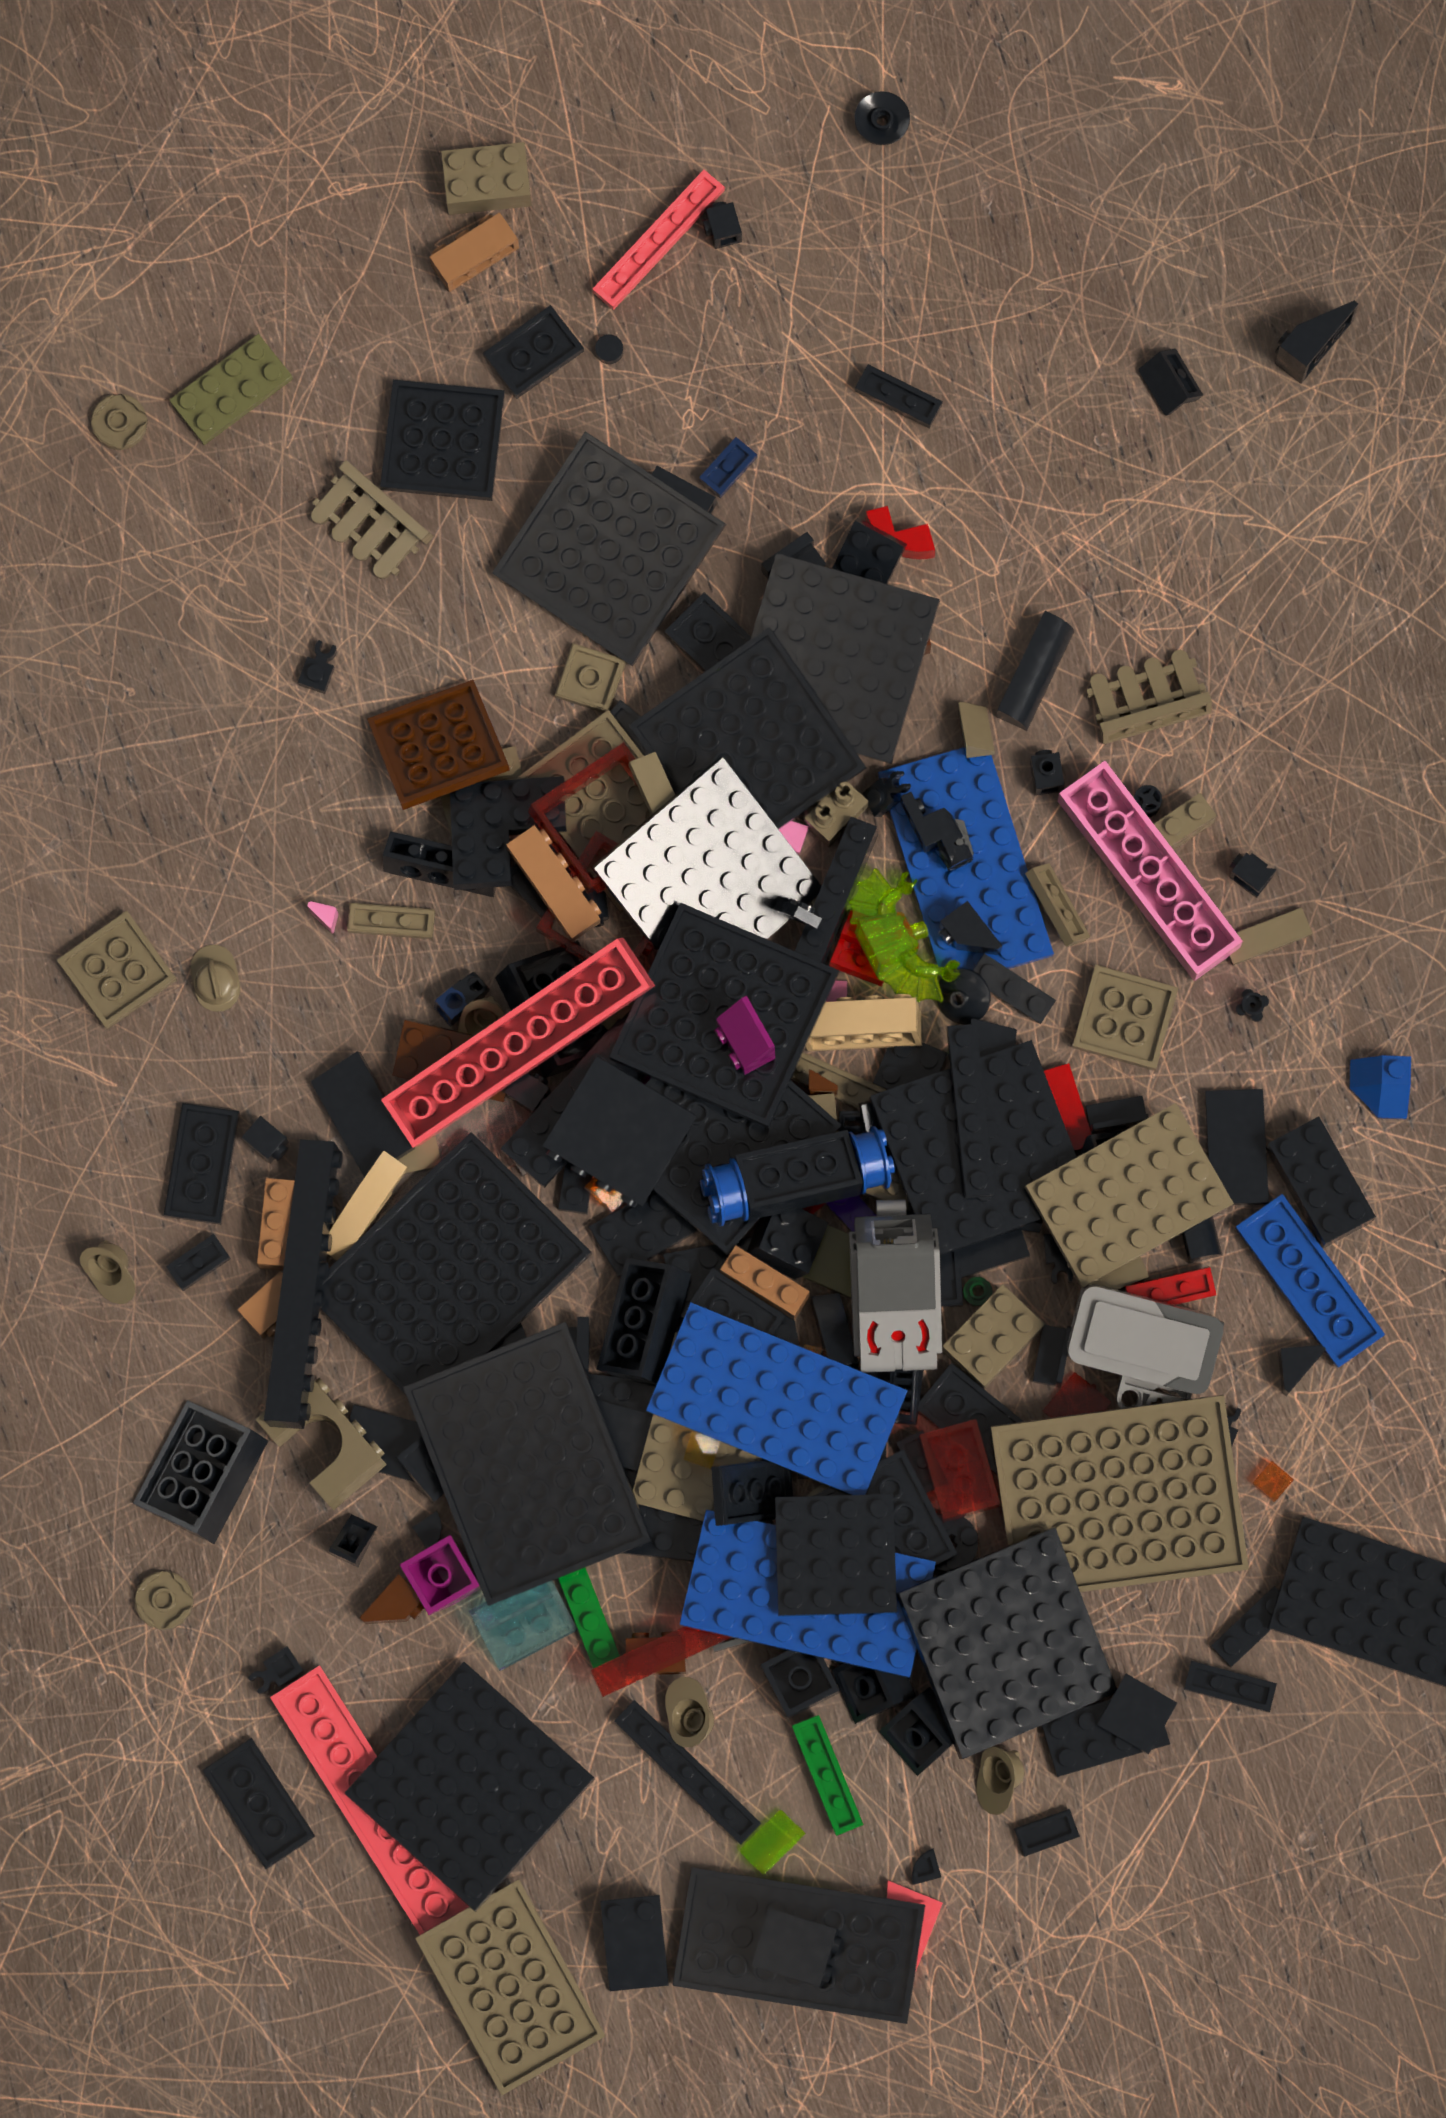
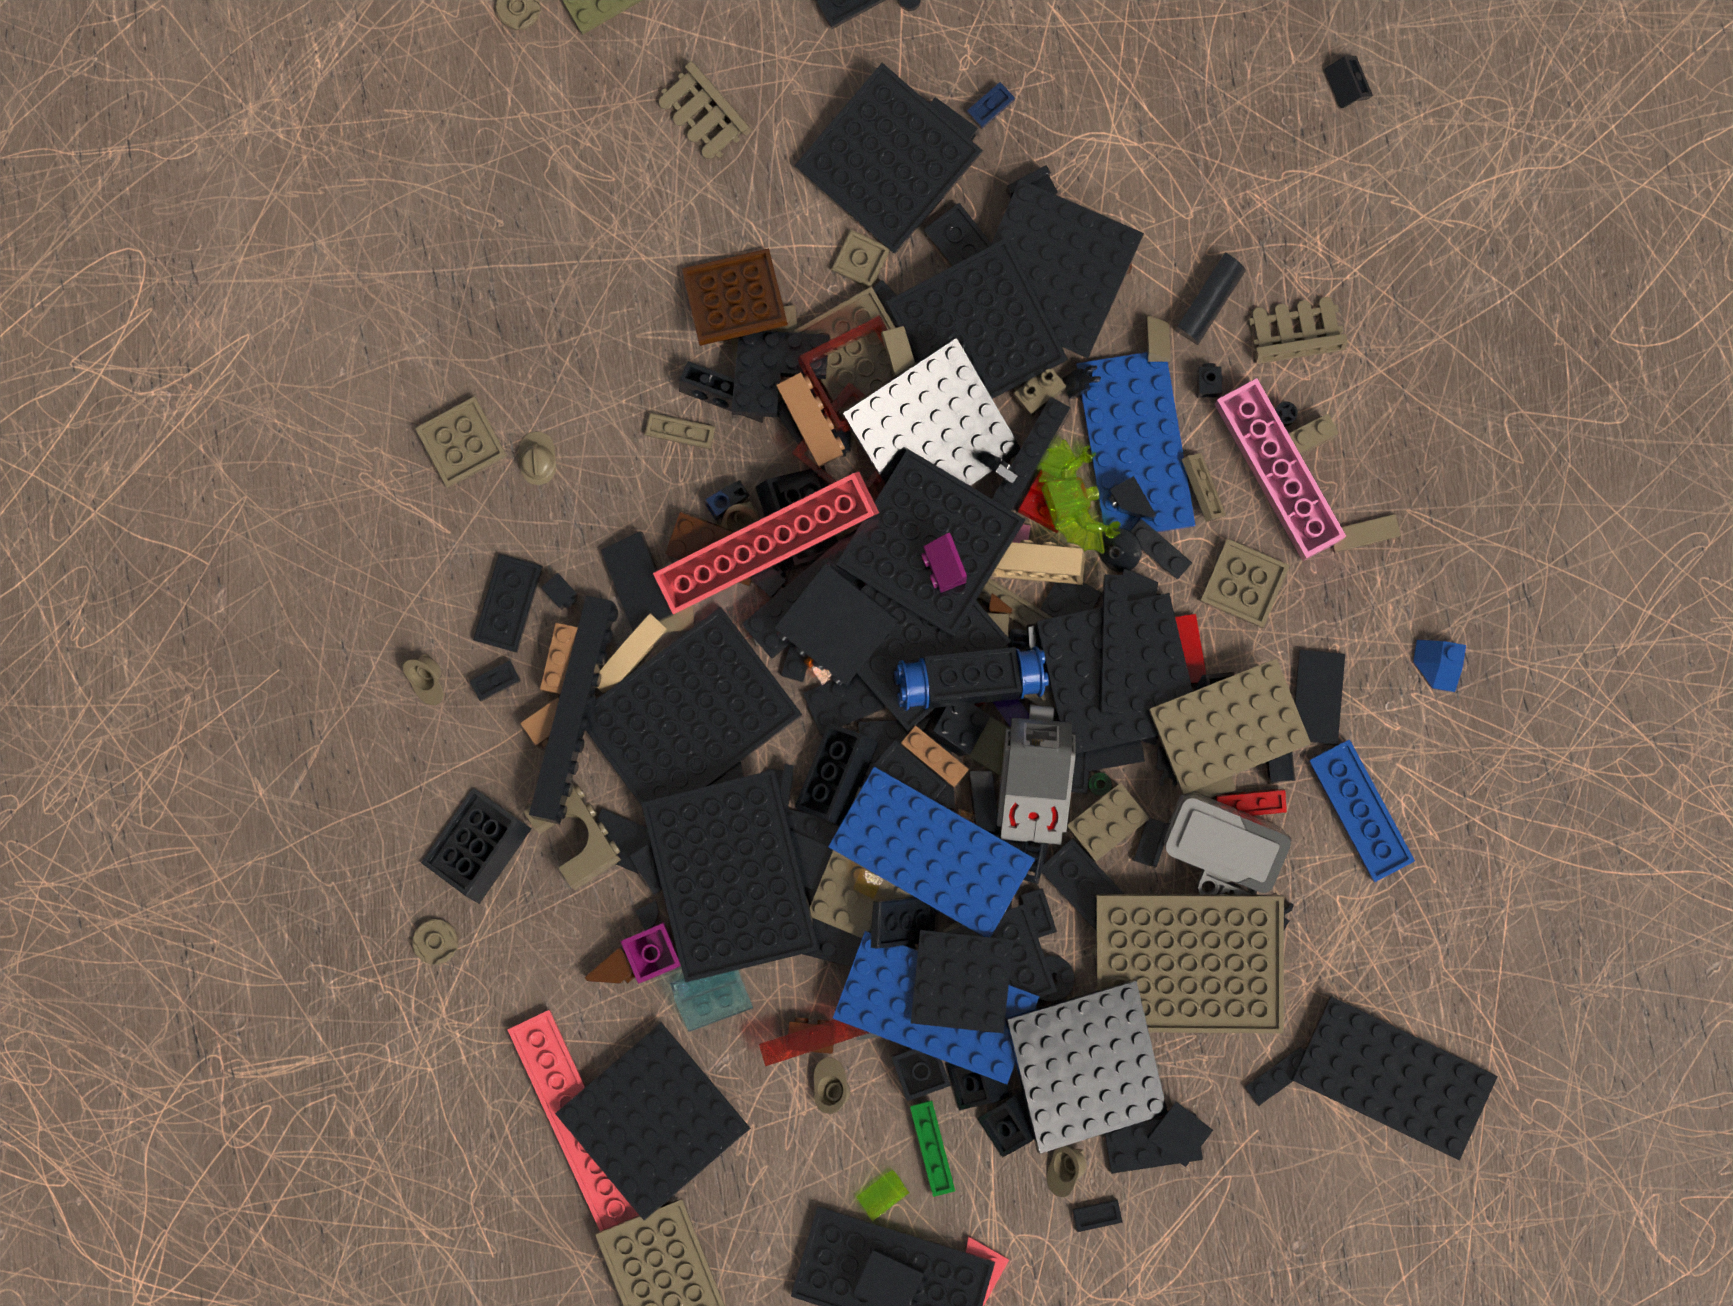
camera: 10 degrees right, 5 degrees up
(259, 1803) = (488, 1110): black tile -> none
(280, 1668) = (518, 1008): black plate -> none
(317, 672) = (648, 226): black plate -> none
(325, 914) = (629, 419): bright pink slope -> none
(353, 1540) = (587, 915): black slope -> none
(442, 440) = (769, 54): black plate -> none
(589, 1617) = (764, 1001): green plate -> none
(634, 1943) = (765, 1258): black slope -> none
(687, 1772) = (824, 1131): black plate -> none
(795, 835) = (1004, 404): bright pink tile -> none
(869, 553) = (1093, 188): black plate -> none
(898, 396) = (1132, 65): black plate -> none
(917, 538) = (1124, 184): red brick -> none
(926, 1868) = (999, 1230): black tile -> none
(940, 832) = (1118, 417): black plate -> none
(959, 1470) = (1067, 926): clear red brick -> none
(1076, 1398) = (1166, 880): clear red piece -> none
(1116, 1115) = (1227, 659): black panel -> none
(1230, 1686) = (1255, 1121): black plate -> none
(1251, 873) = (1359, 482): black window -> none
(1252, 997) = (1345, 580): black plate -> none
(1273, 1481) = (1311, 964): clear orange tile -> none
(1295, 1363) = (1342, 875): black slope -> none
(1311, 340) = (1464, 63): black slope -> none
(1320, 1182) = (1380, 734): black brick -> none

